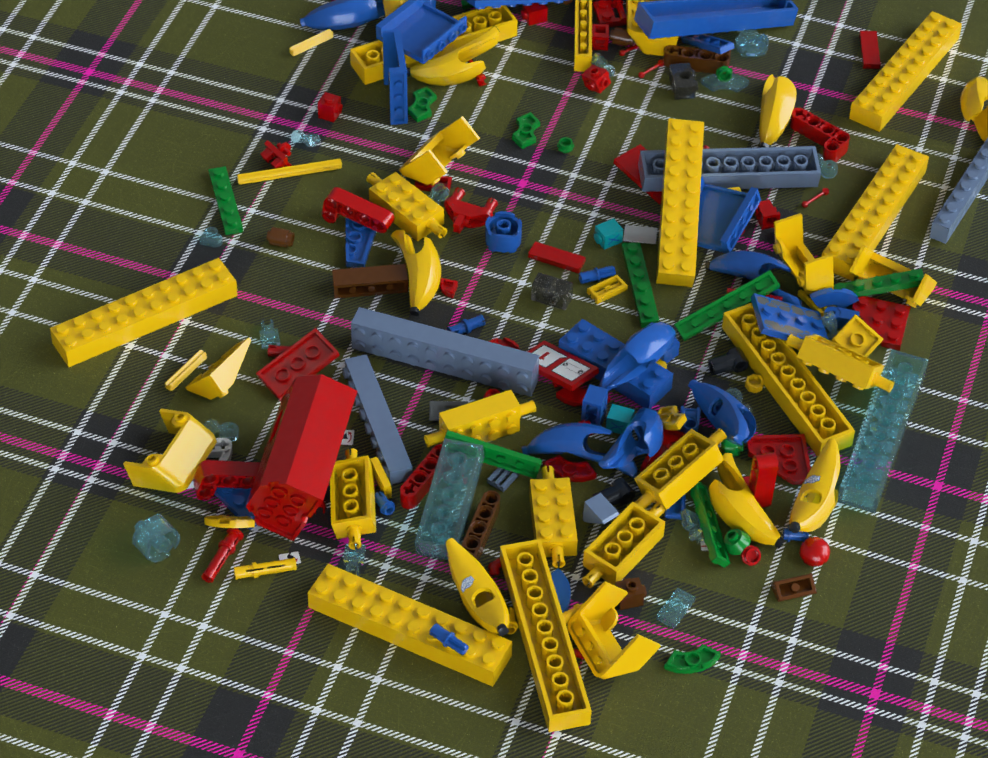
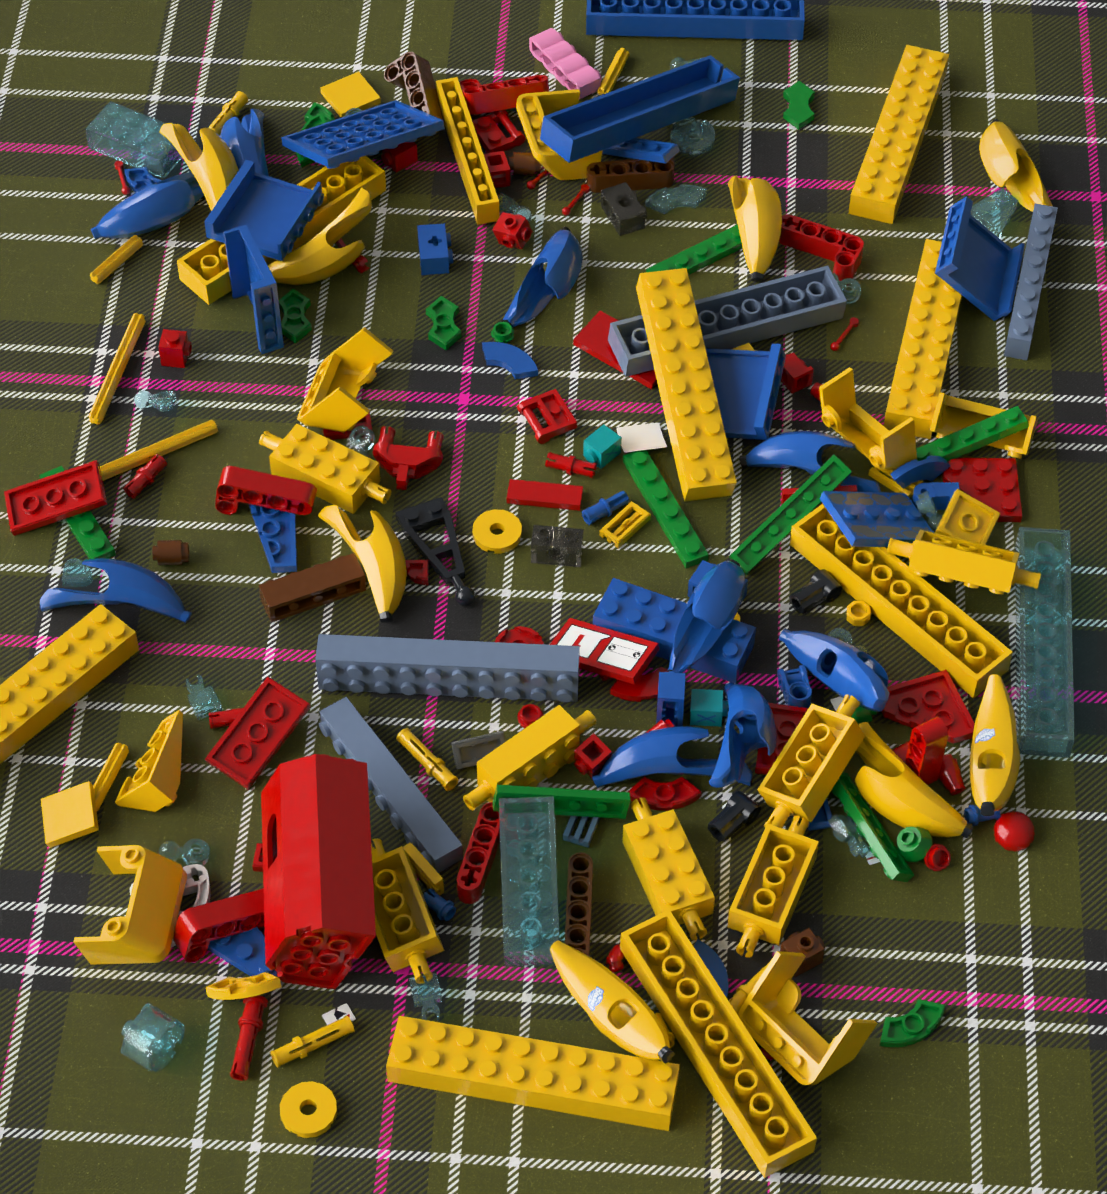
camera: 15 degrees left, 5 degrees up
(151, 387) = (69, 814): none -> yellow tile
(213, 185) = (55, 498): none -> red tile
(240, 249) = (126, 585): none -> blue piece
(247, 601) = (308, 1094): none -> yellow tile
(280, 154) = (117, 430): red hips -> none
(280, 185) = (145, 476): none -> red pin
(286, 112) = (117, 368): none -> yellow axle
(412, 413) = (434, 766): none -> yellow pin
(448, 639) = (599, 1086): blue axle -> none
(466, 326) = (460, 621): blue pin -> none
(468, 253) = (426, 516): none -> black plate
(503, 232) = (466, 477): blue brick -> none
(509, 266) = (497, 520): none -> yellow tile
(524, 431) = (591, 756): none -> red brick
(536, 80) = (433, 249): none -> blue brick
(565, 163) = (510, 358): none -> blue tile
(582, 241) = (571, 465): none -> red pin
(583, 205) = (553, 411): none -> red plate
(599, 510) = (728, 847): sand blue slope -> none
(609, 115) = (539, 286): none -> blue piece
(671, 418) = (777, 694): yellow tile -> none
(675, 608) = (866, 956): clear light blue plate -> none
(724, 77) = (674, 187): green plate -> none
(731, 123) = (703, 252): none -> green plate
(781, 503) = (951, 775): none -> red cone
(794, 587) = (1004, 887): reddish brown slope -> none
(840, 34) = (798, 98): none -> green tile
(869, 49) = (842, 113): red tile -> none
(928, 166) = (978, 262): none -> blue panel
(959, 138) = (995, 211): none -> clear light blue wing

